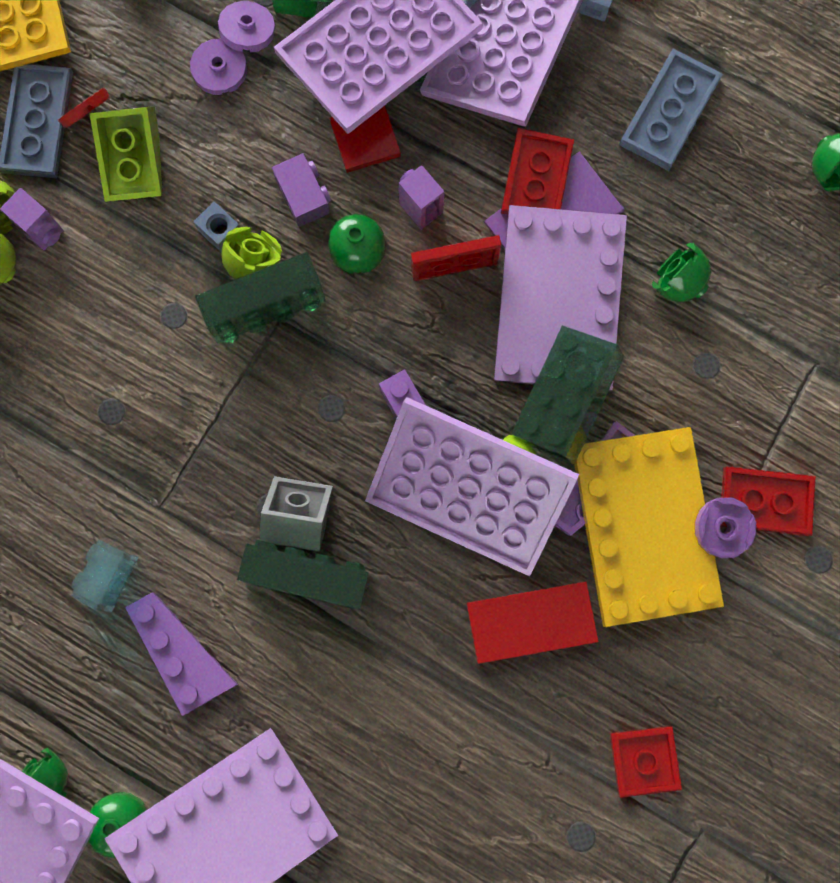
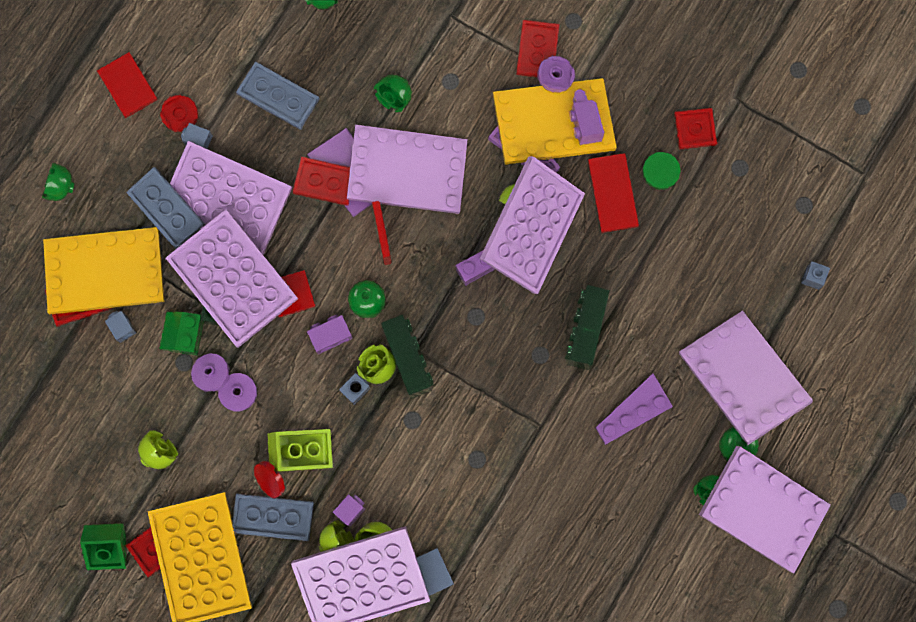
camera: 90 degrees left, 0 degrees up
(103, 576) = (586, 456): clear light blue slope -> none
(295, 513) = (545, 336): light grey slope -> none
(420, 196) = (339, 254): medium lavender brick -> none
(568, 394) = (474, 163): clear green brick -> none
(571, 702) = (661, 170): none -> green tile
(649, 575) = (586, 119): none -> medium lavender hinge

